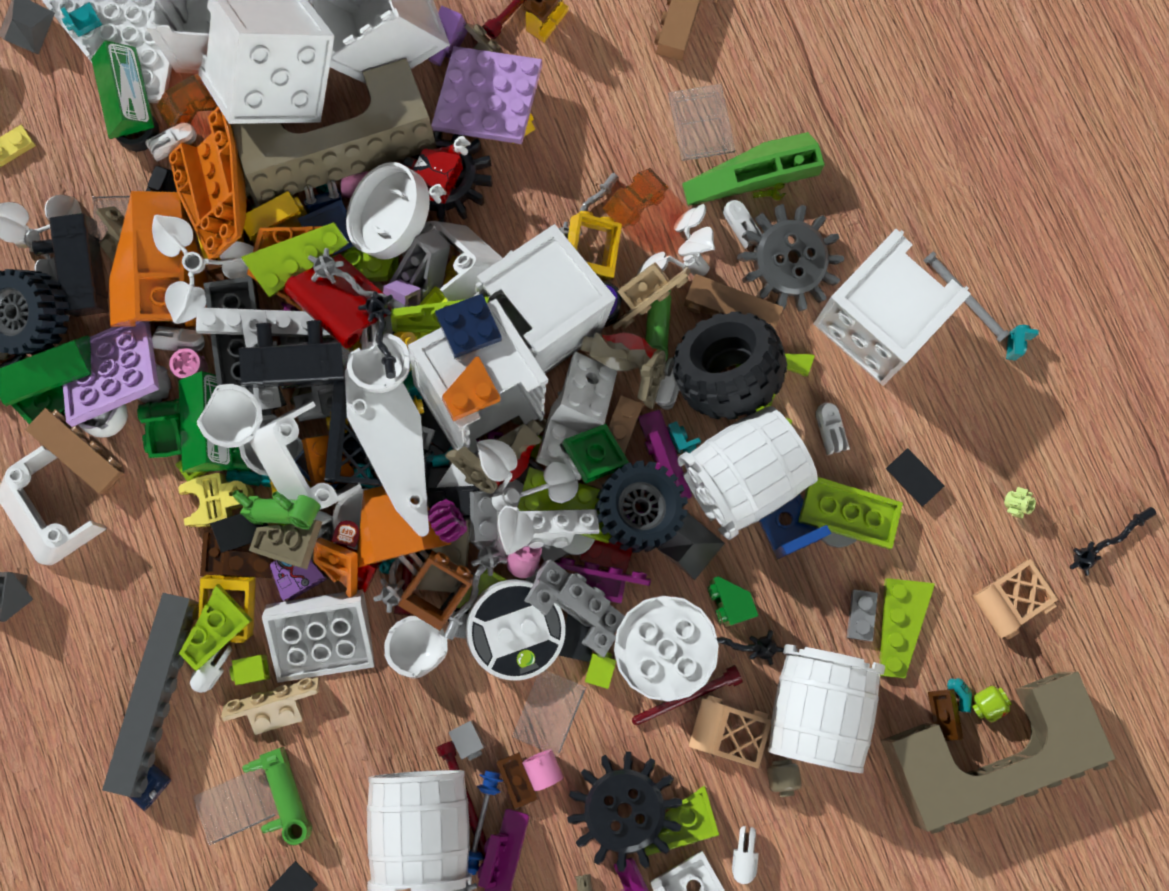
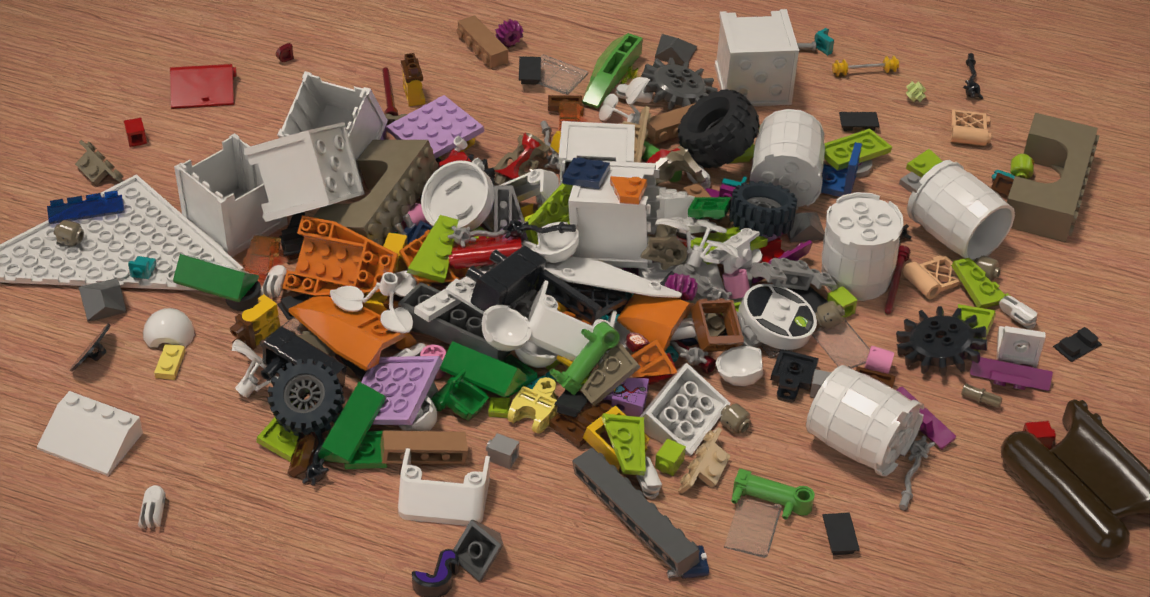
camera: 50 degrees left, 35 degrees down
(41, 110) = (169, 327): none -> white cylinder
(95, 179) = (256, 323): none -> yellow hips
(135, 517) = (503, 450): none -> light grey brick
(351, 690) = (735, 418): none -> dark tan head
(449, 702) = (790, 379): none -> black plate
(505, 218) = (531, 147): none -> dark tan hips
(567, 675) = (829, 314): none -> dark tan head
(663, 168) = (553, 101): none -> reddish brown plate
(676, 95) = (529, 70): none -> black piece
(715, 27) = (509, 32): none -> magenta gear
(750, 789) = (979, 287): none -> lime wing
(857, 203) = (674, 48): none -> dark grey slope
(1042, 437) = (887, 64): none -> yellow axle

